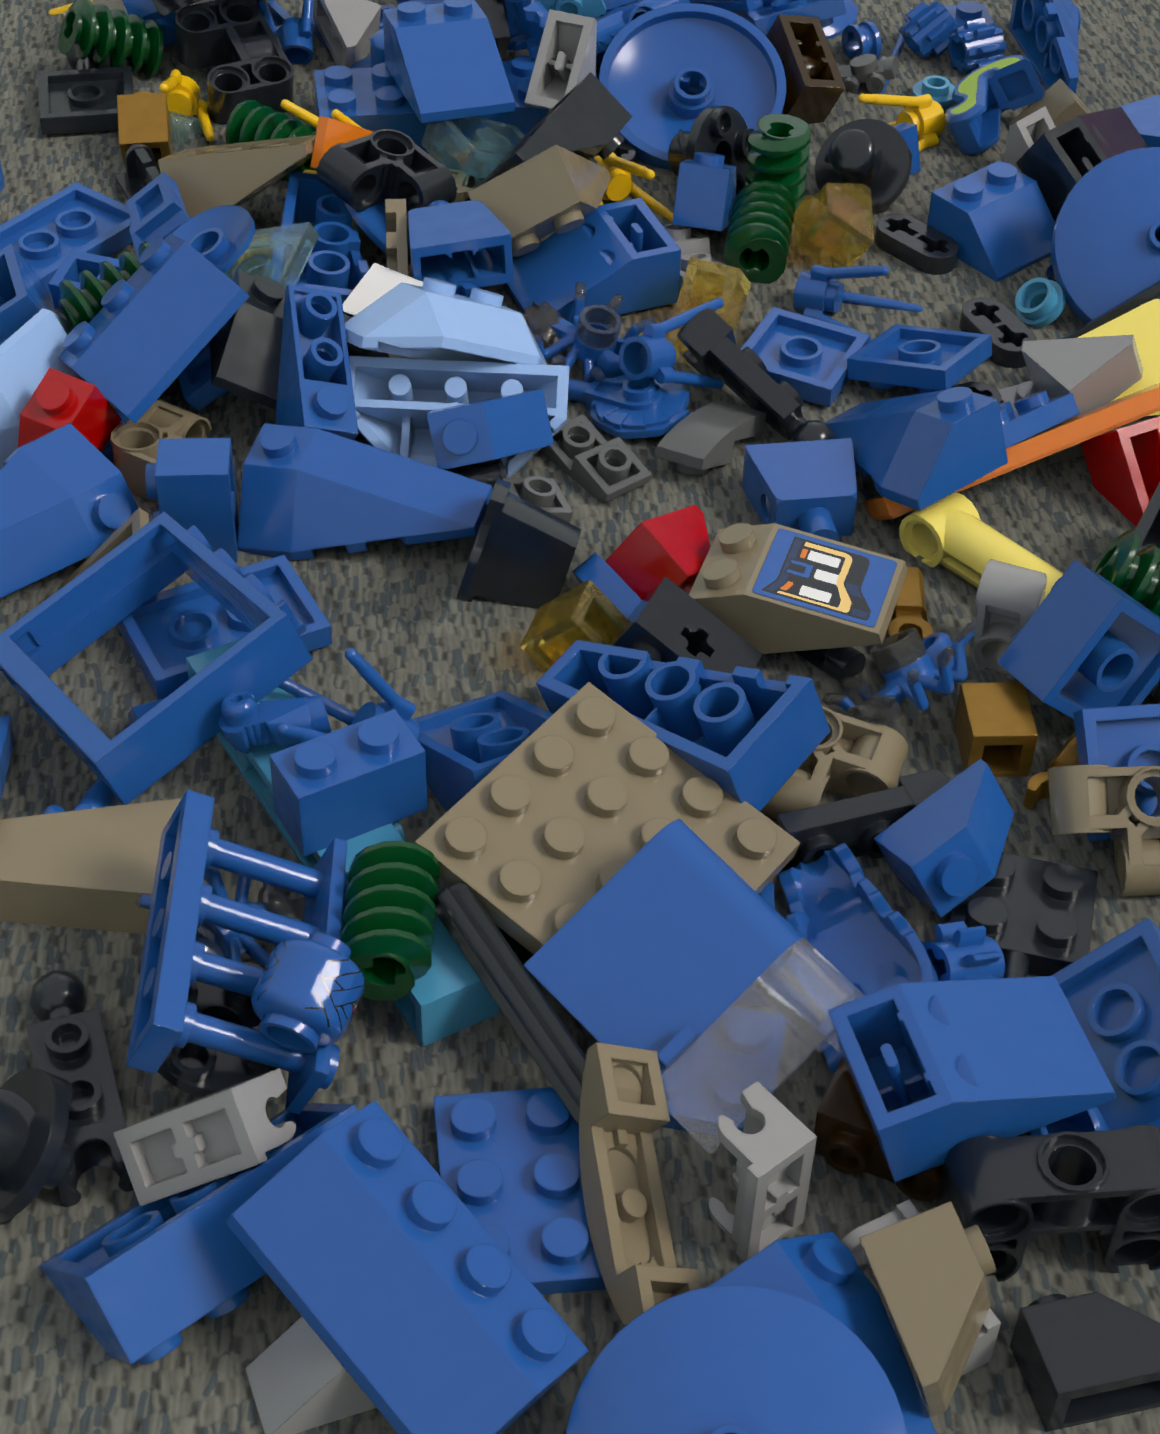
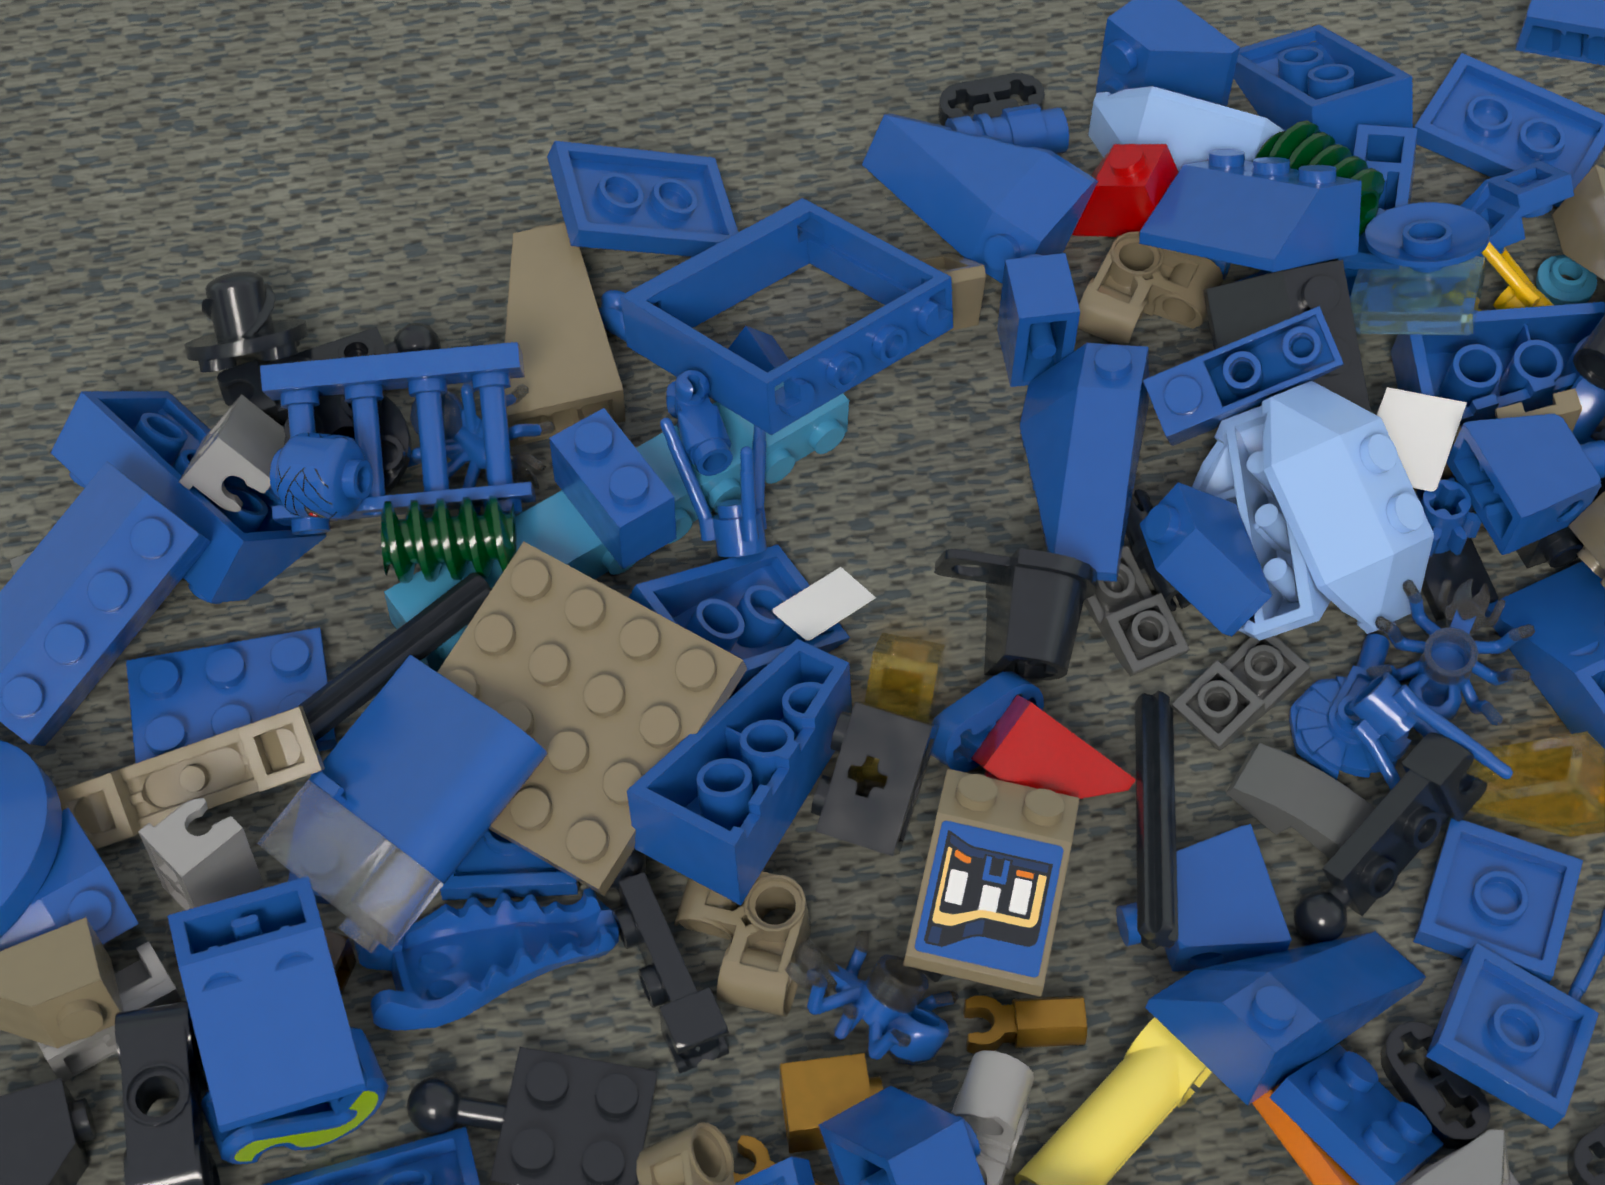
camera: 85 degrees right, 15 degrees up
(191, 621) = (912, 407): blue plate -> none
(471, 694) = (823, 604): none -> white sticker
(740, 491) = (1155, 822): none -> black axle
(950, 840) = (624, 1039): blue slope -> none
(964, 953) = (473, 1052): blue gear -> none

